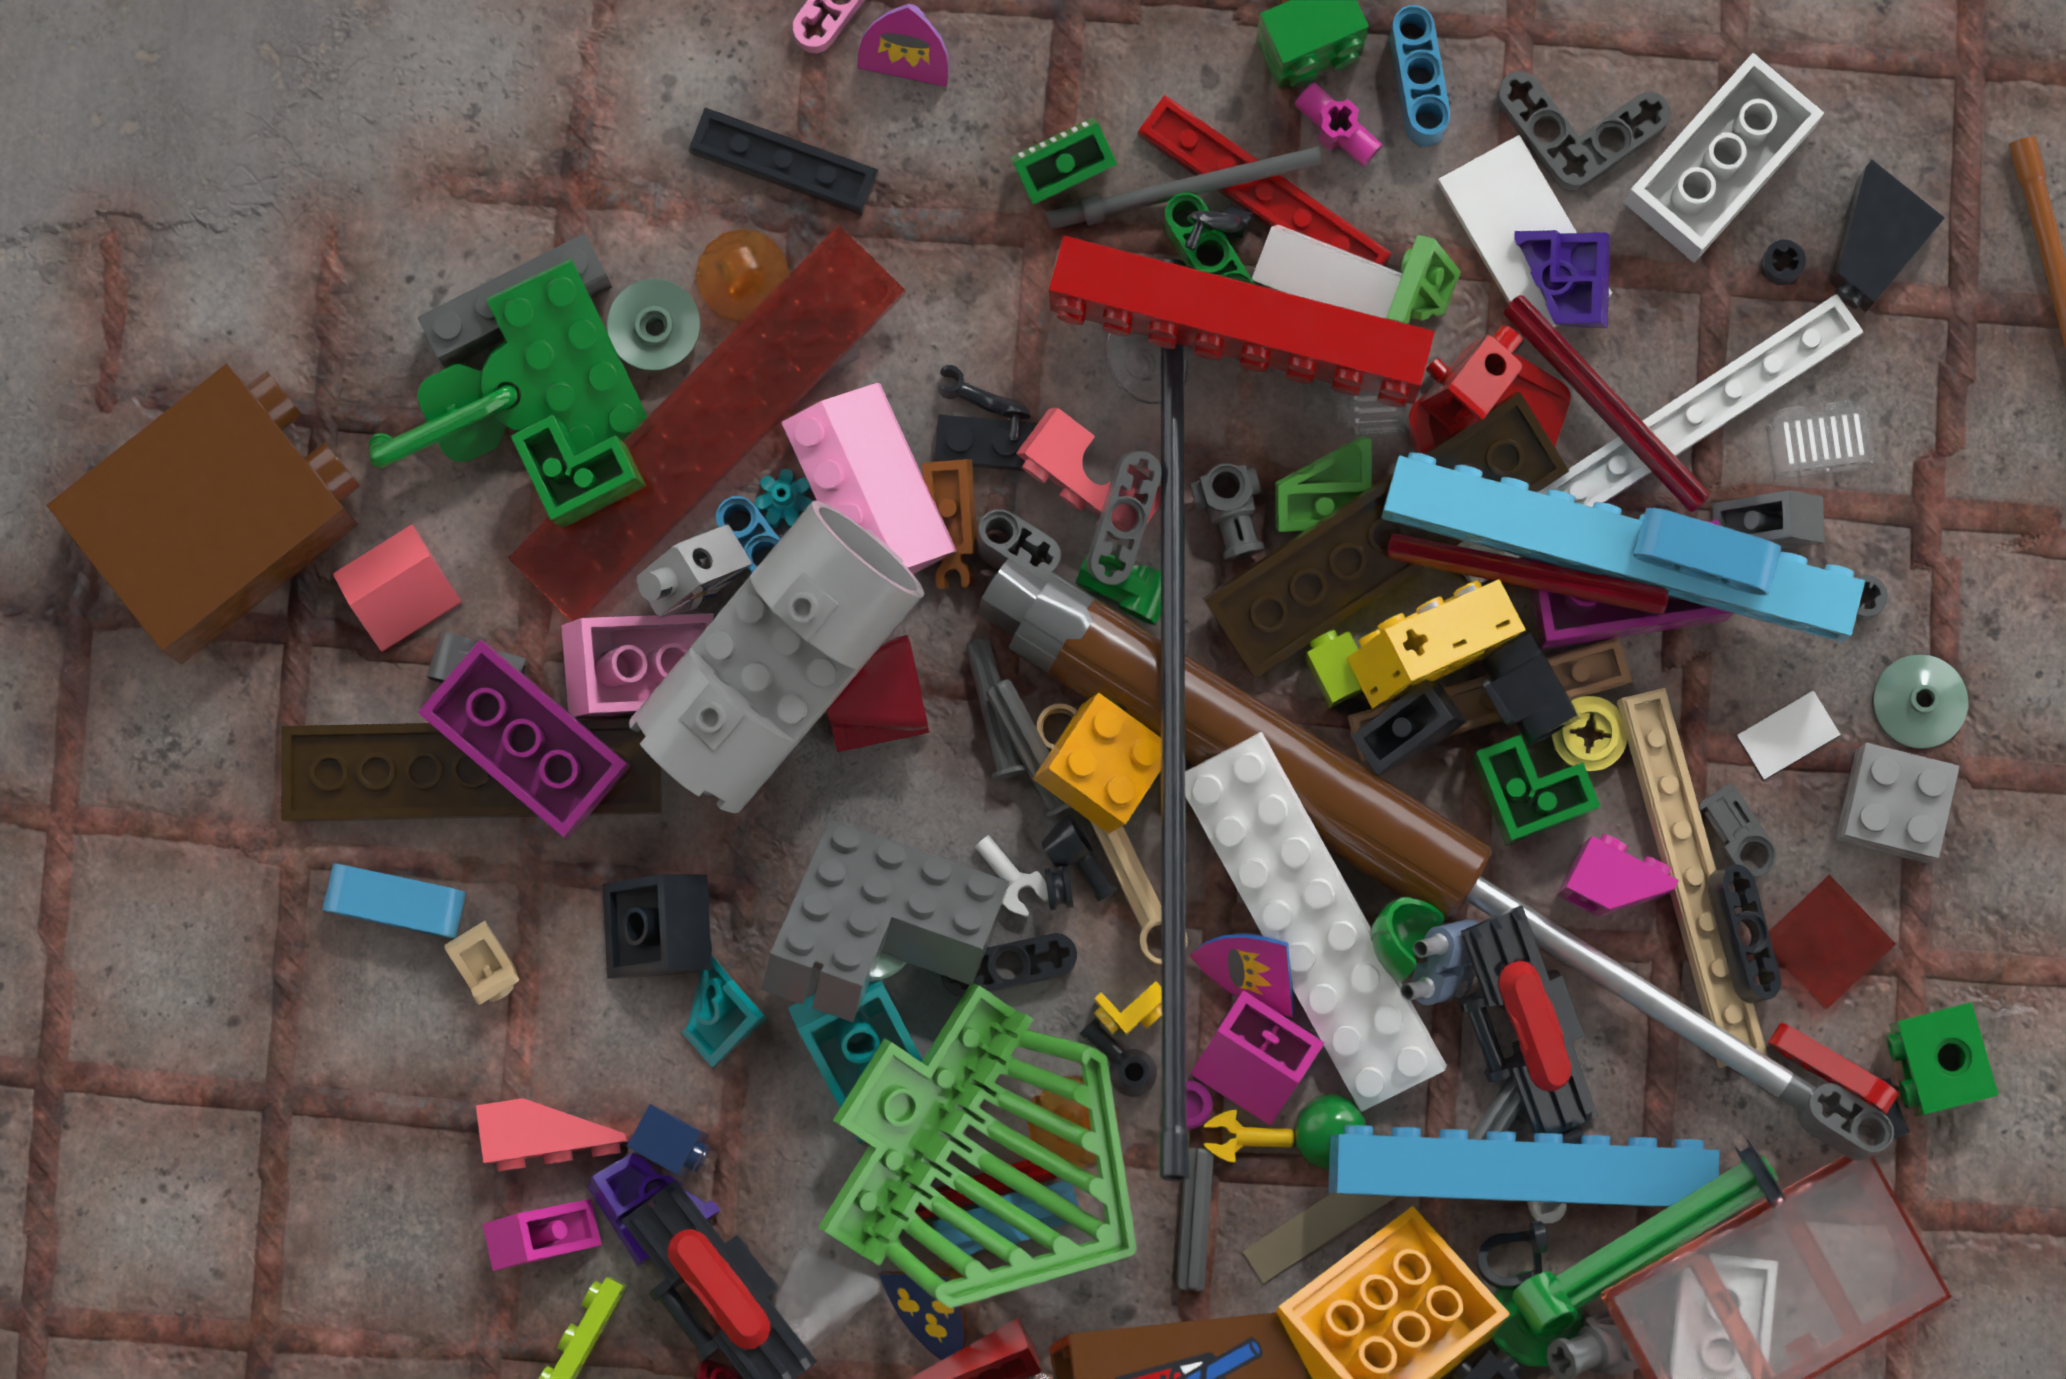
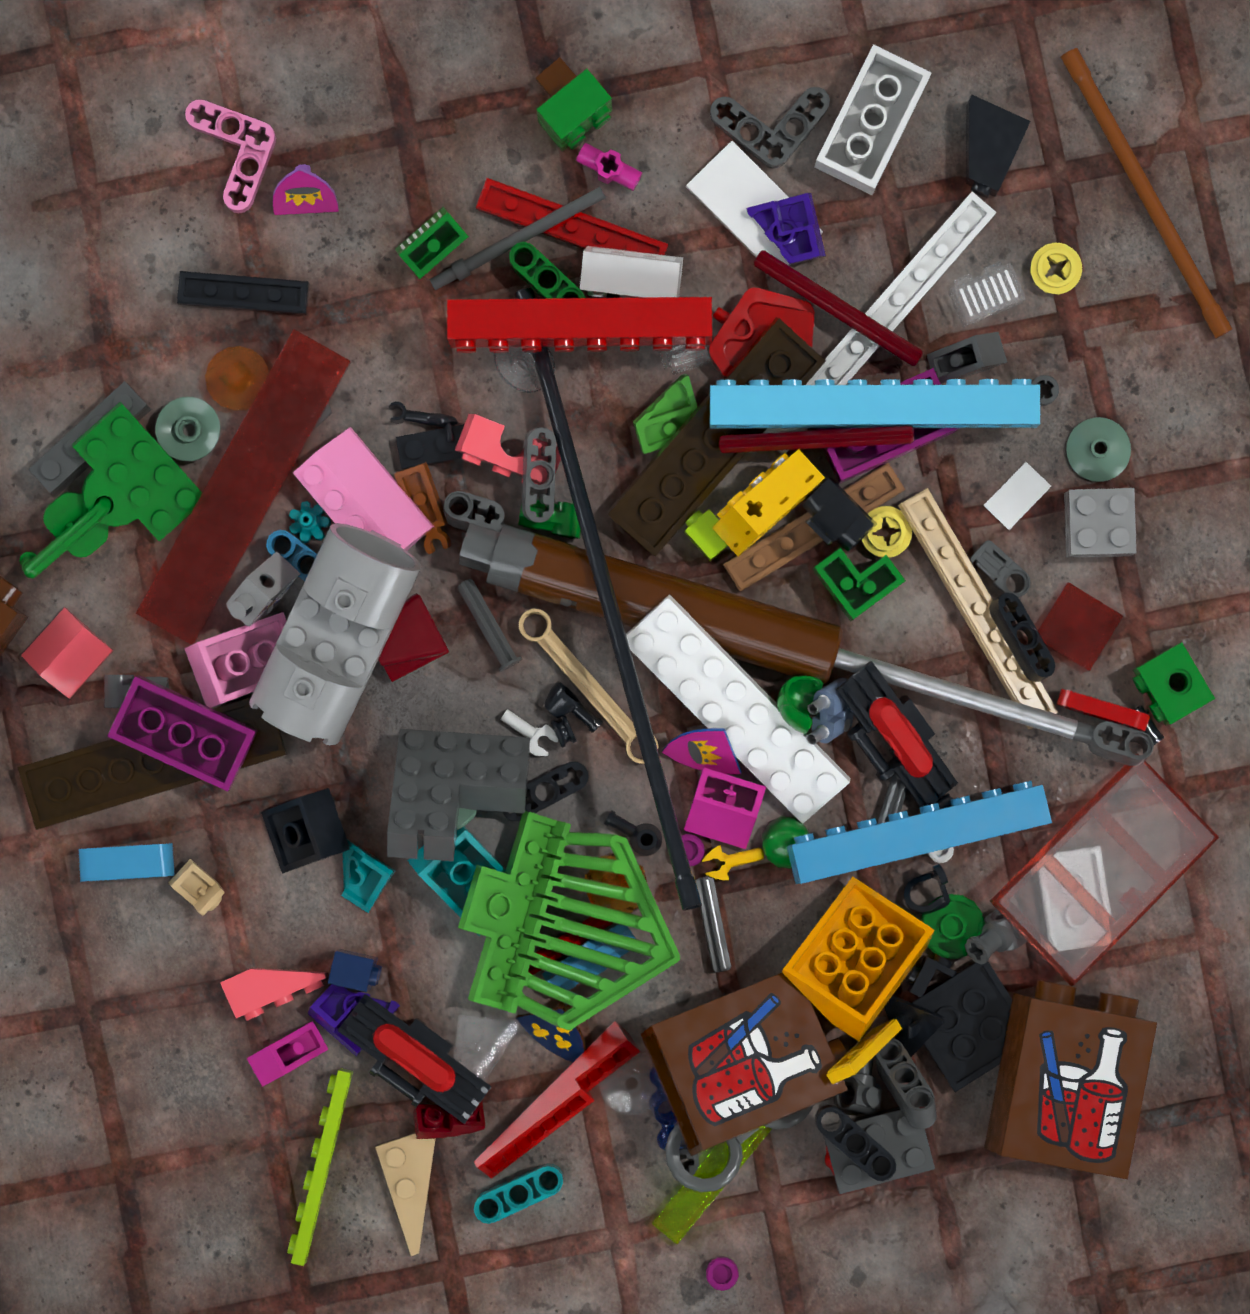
camera: 20 degrees left, 5 degrees up
(572, 482) = (164, 553): green brick -> none
(1023, 737) = (519, 644): dark grey axle -> none
(1102, 763) = (569, 642): light orange brick -> none
(1143, 1010) = (641, 797): yellow bracket -> none
(1231, 221) = (556, 253): black piece -> none
(1232, 510) = (609, 448): dark grey connector -> none
(1309, 1231) = (788, 912): dark tan sticker -> none
(1409, 727) = (765, 562): black slope -> none
(1422, 54) = (654, 103): dark azure beam -> none
(1425, 283) = (697, 261): bright green wing -> none
(1475, 380) = (747, 318): red torso -> none
(1552, 1301) = (960, 914): green piece -> none
(1611, 880) = (923, 627): dark pink slope -> none
(1707, 551) = (930, 395): dark azure beam -> none
(1787, 275) = (926, 169): black bush -> none
(1934, 413) = (1057, 253): none -> light yellow gear

